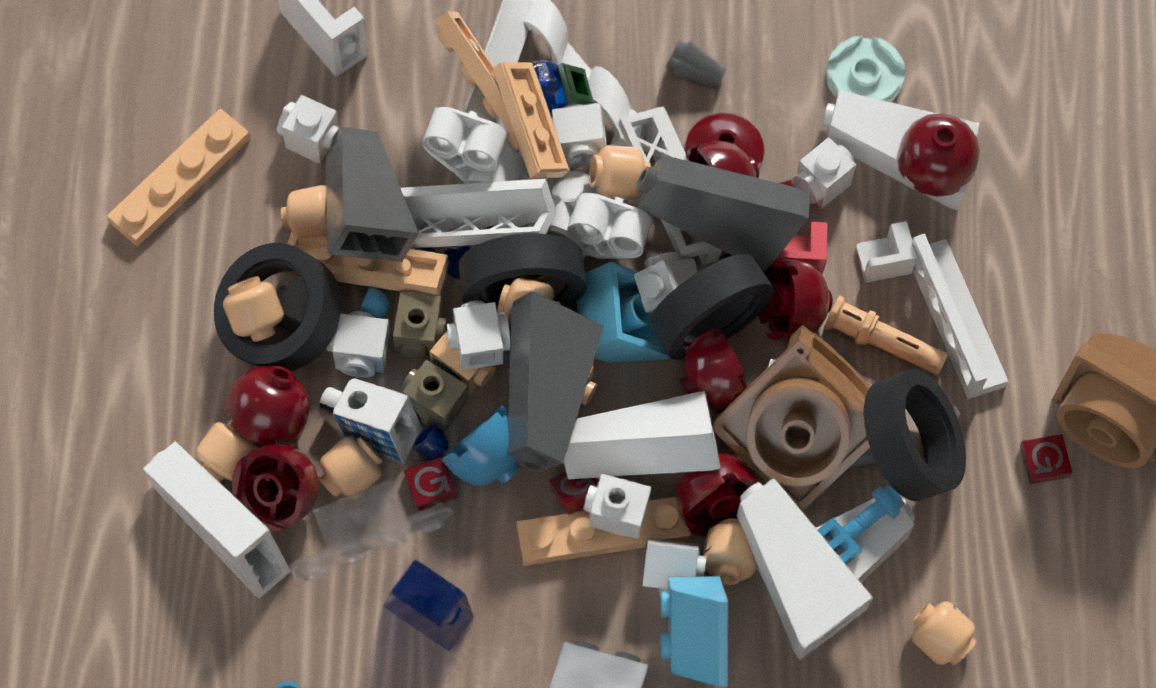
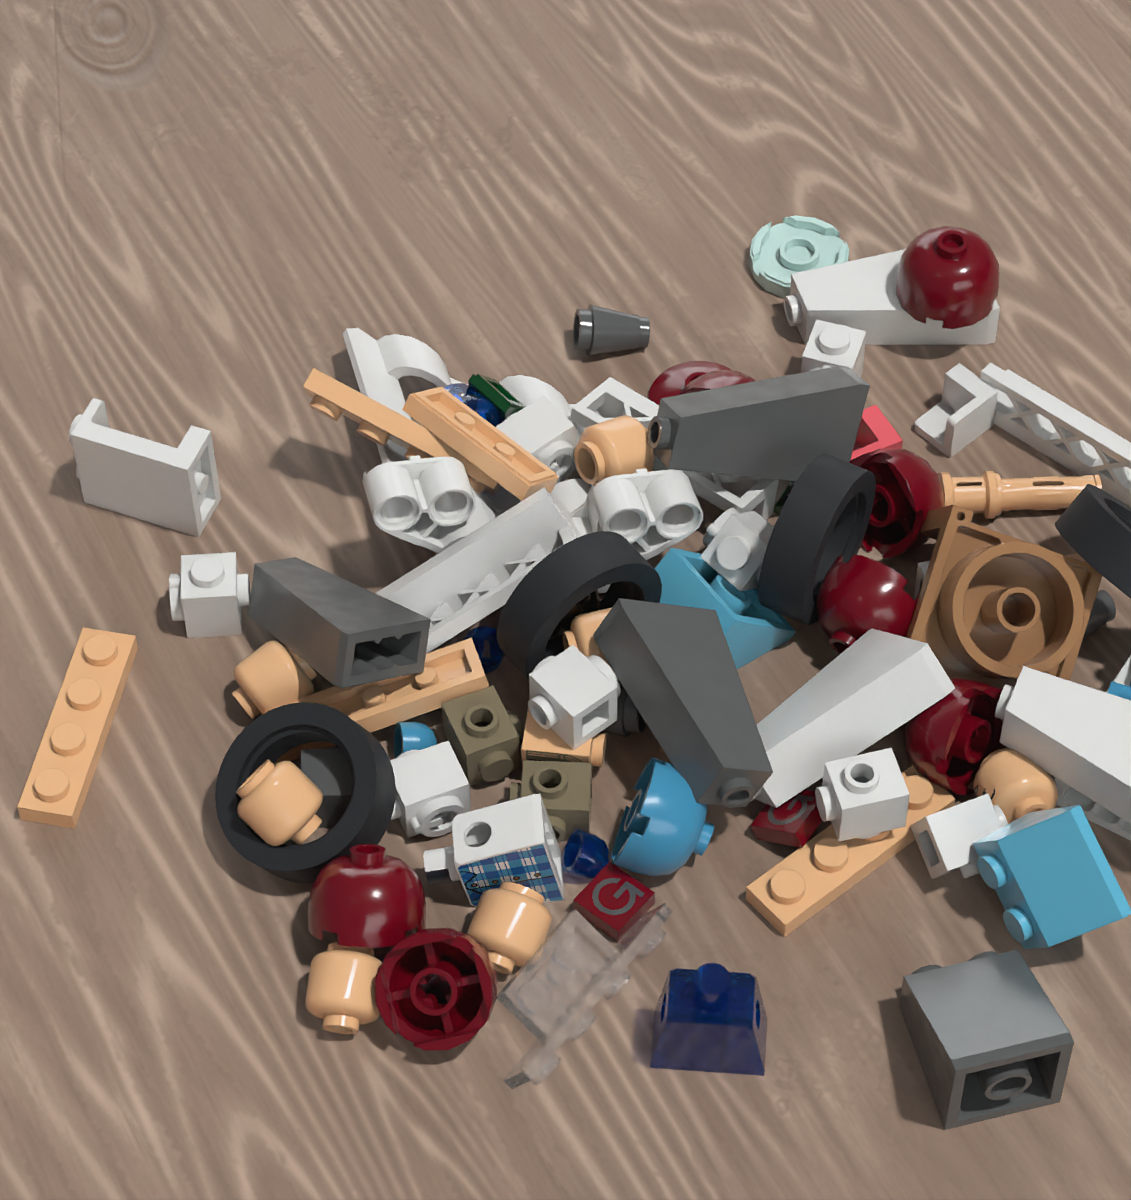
camera: 25 degrees left, 15 degrees down
(218, 519) = (388, 1063): white slope -> none

